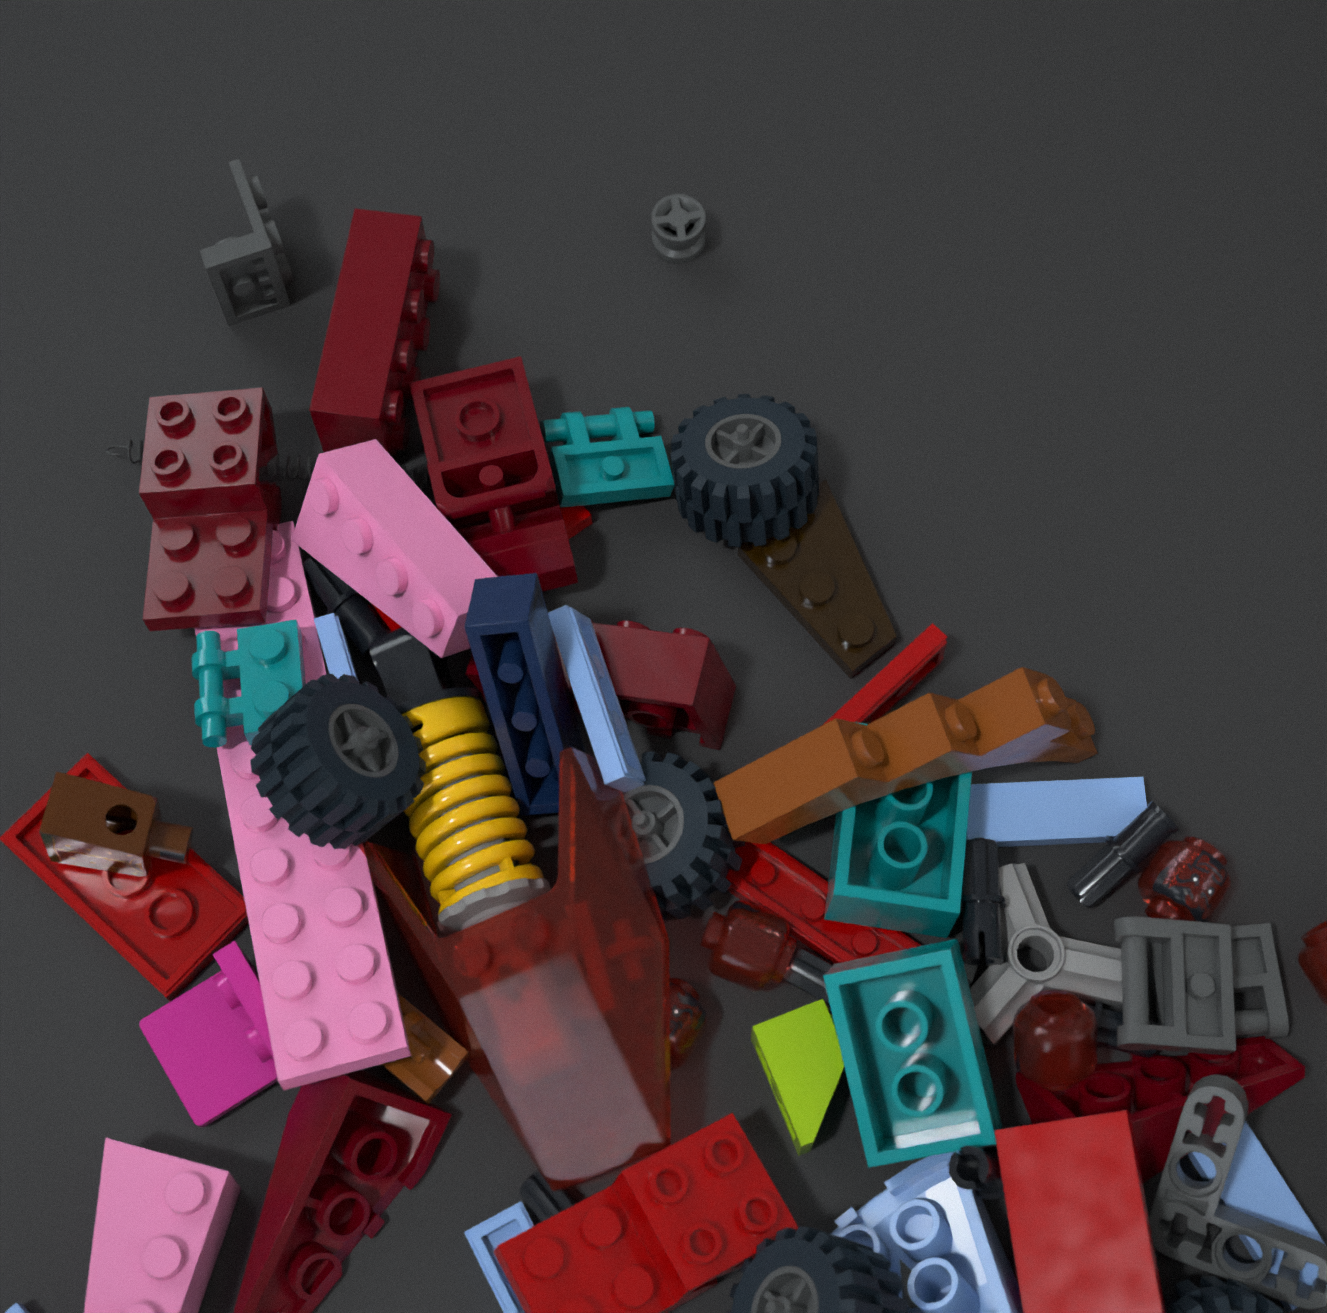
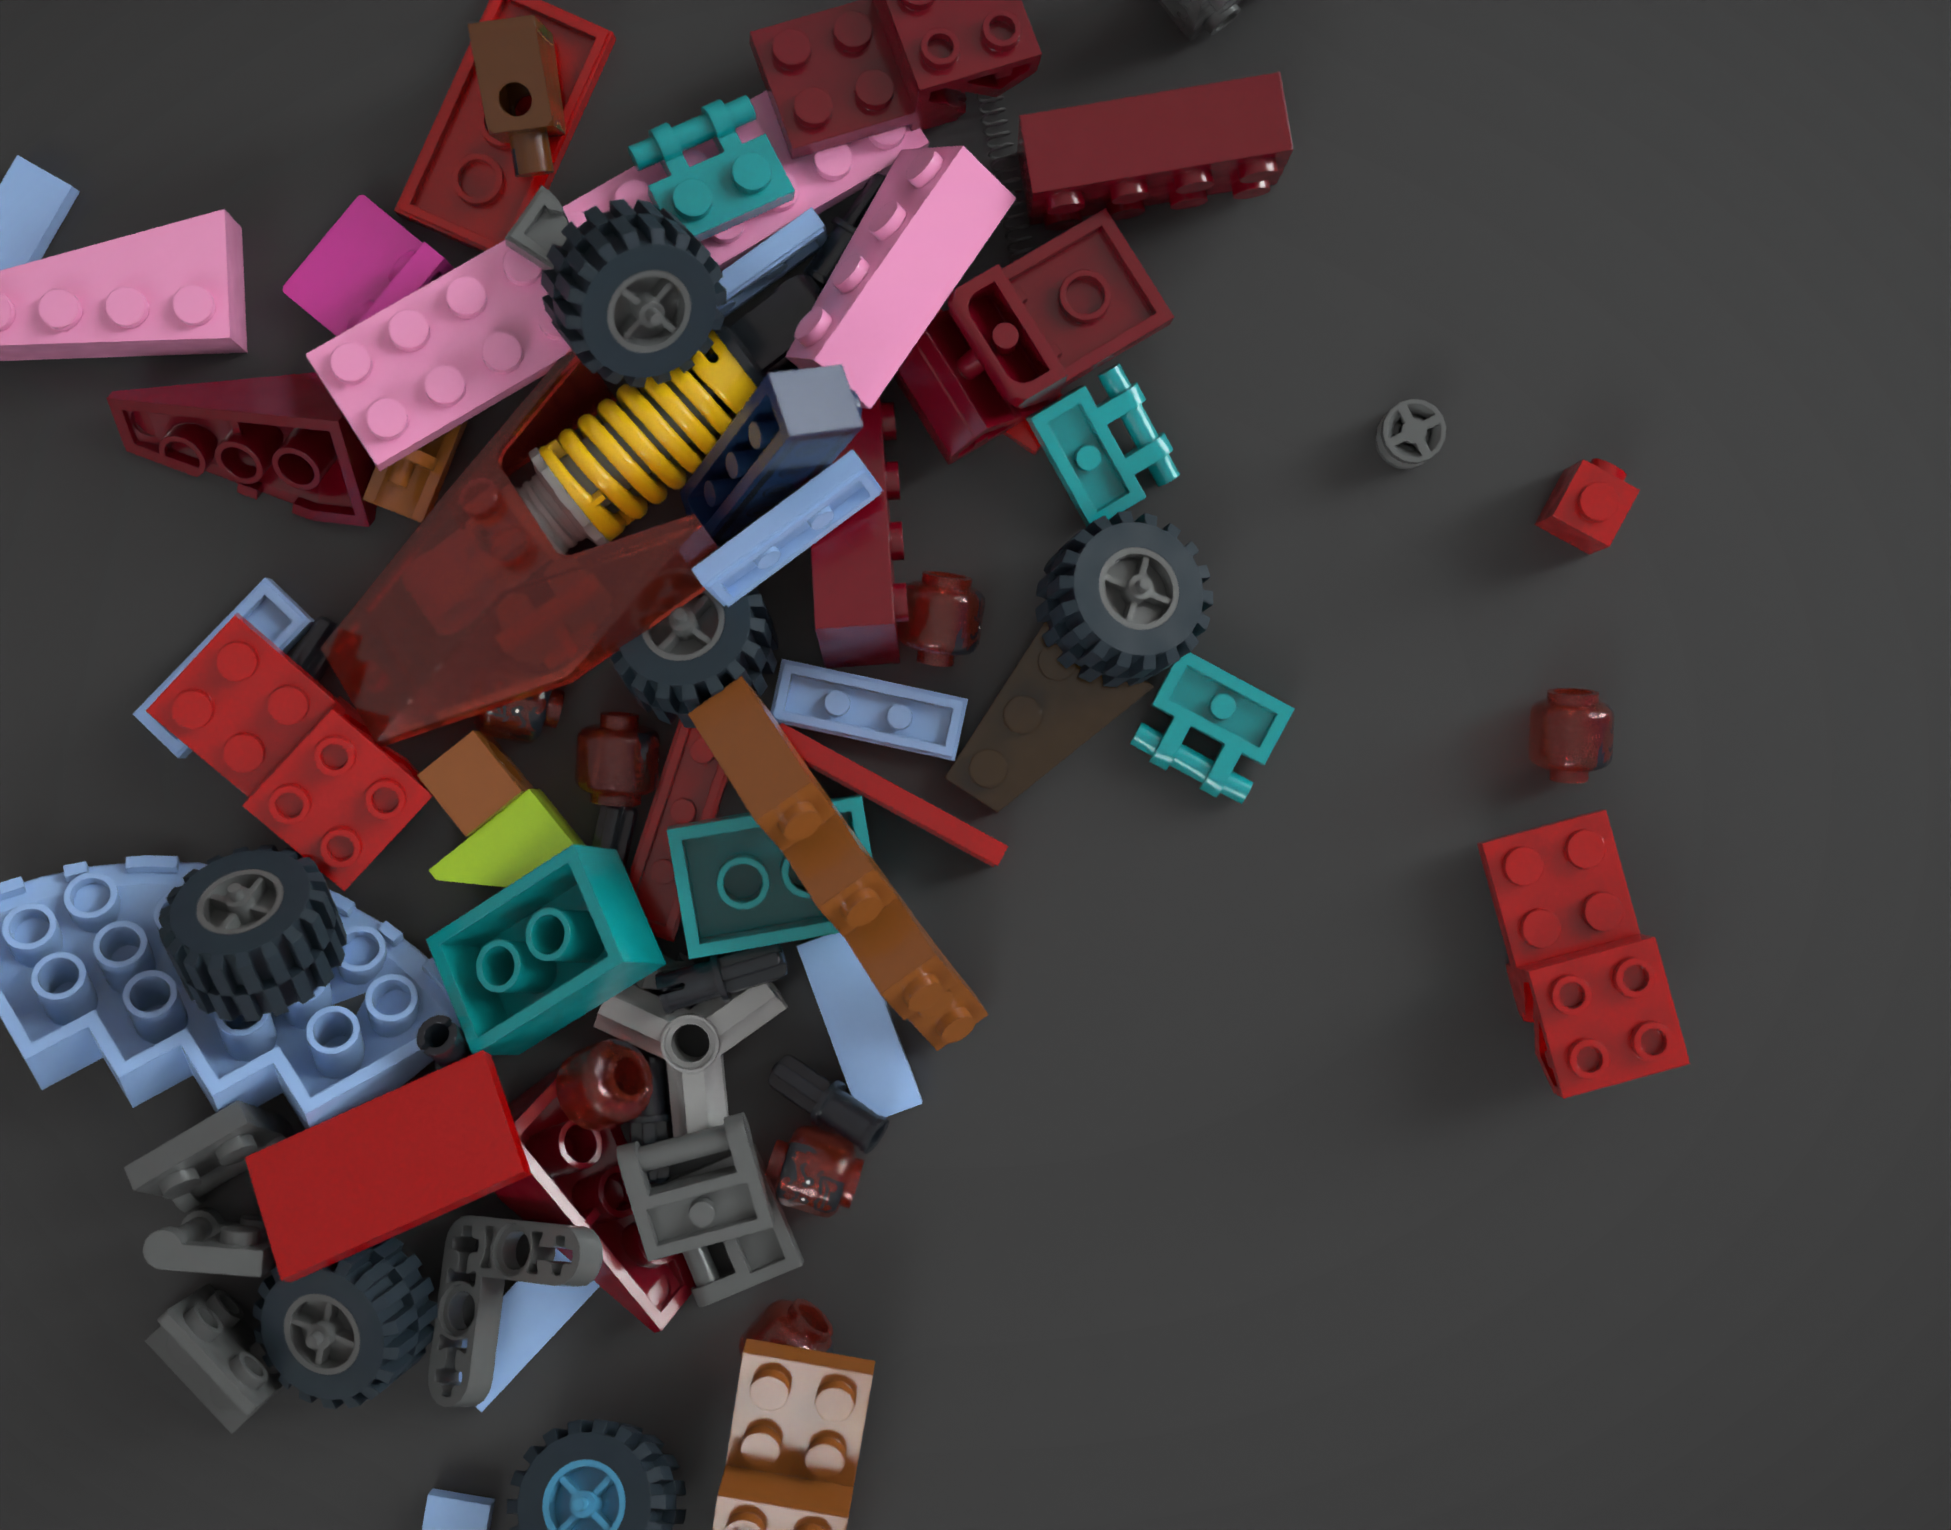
camera: 70 degrees right, 20 degrees up
(251, 835) = (538, 229): none -> dark grey tile
(718, 618) = (942, 617): none -> clear red head
(731, 1078) = (474, 781): none -> dark orange piece
(776, 705) = (868, 709): none -> light blue tile
(783, 117) = (1588, 505): none -> red brick
(866, 428) = (1221, 708): none -> teal plate
(965, 180) = (1571, 734): none -> clear red head
(1158, 220) = (1580, 956): none -> red piece

